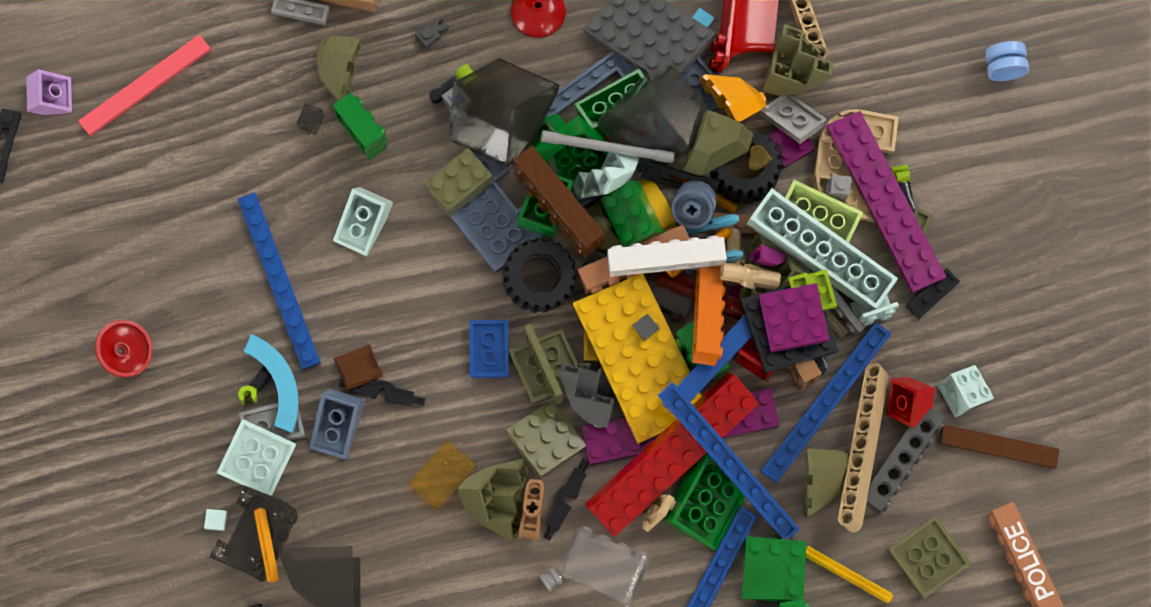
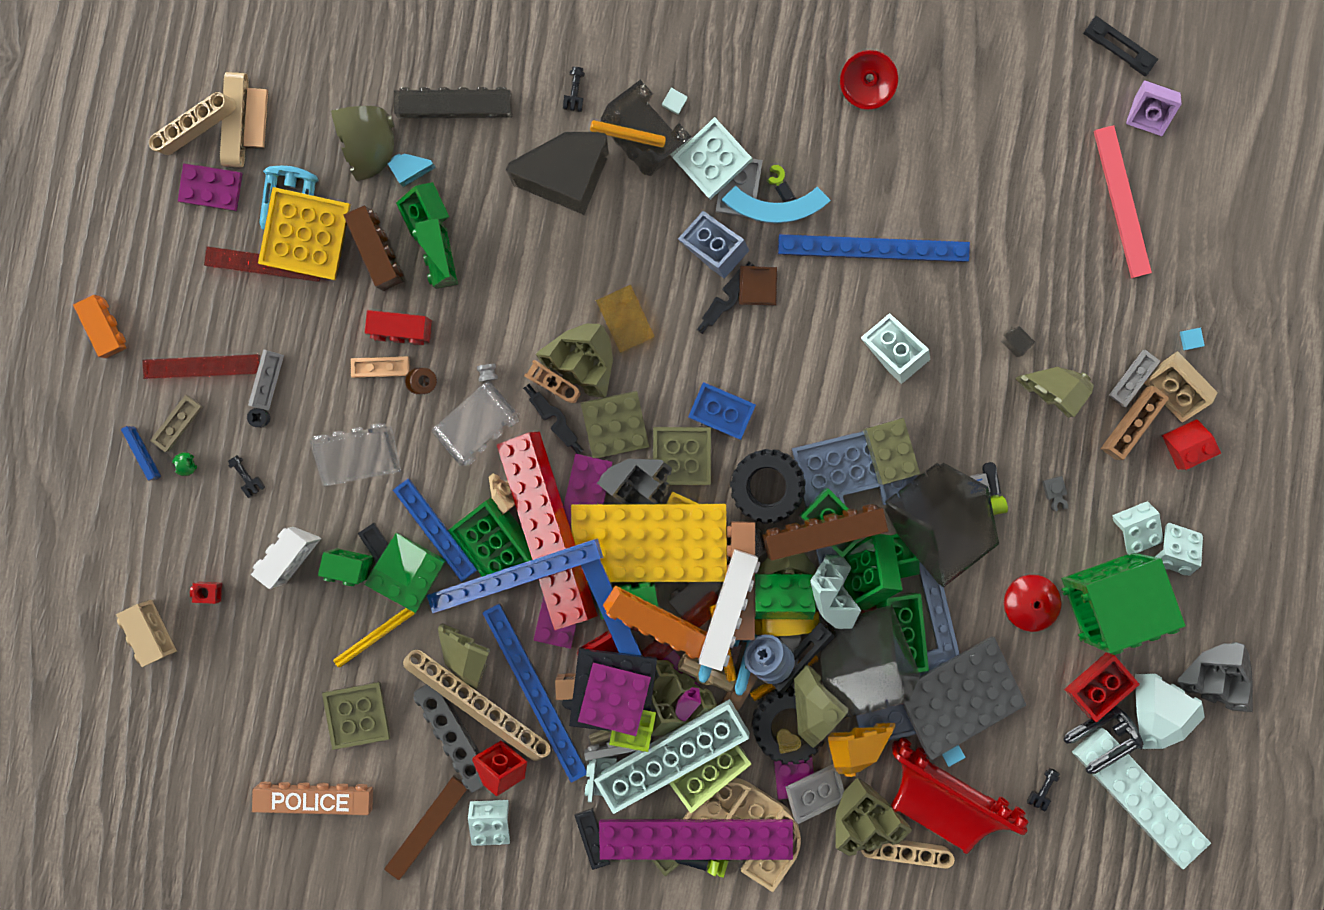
camera: 120 degrees right, 15 degrees up
(360, 125) = (989, 385): green brick -> none
(543, 364) = (681, 451): olive tile -> none
(557, 138) = (885, 559): light grey piece -> none
(645, 327) = (672, 560): dark grey tile -> none
(750, 276) = (676, 678): tan piece -> none
(839, 187) = (725, 802): light grey brick -> none

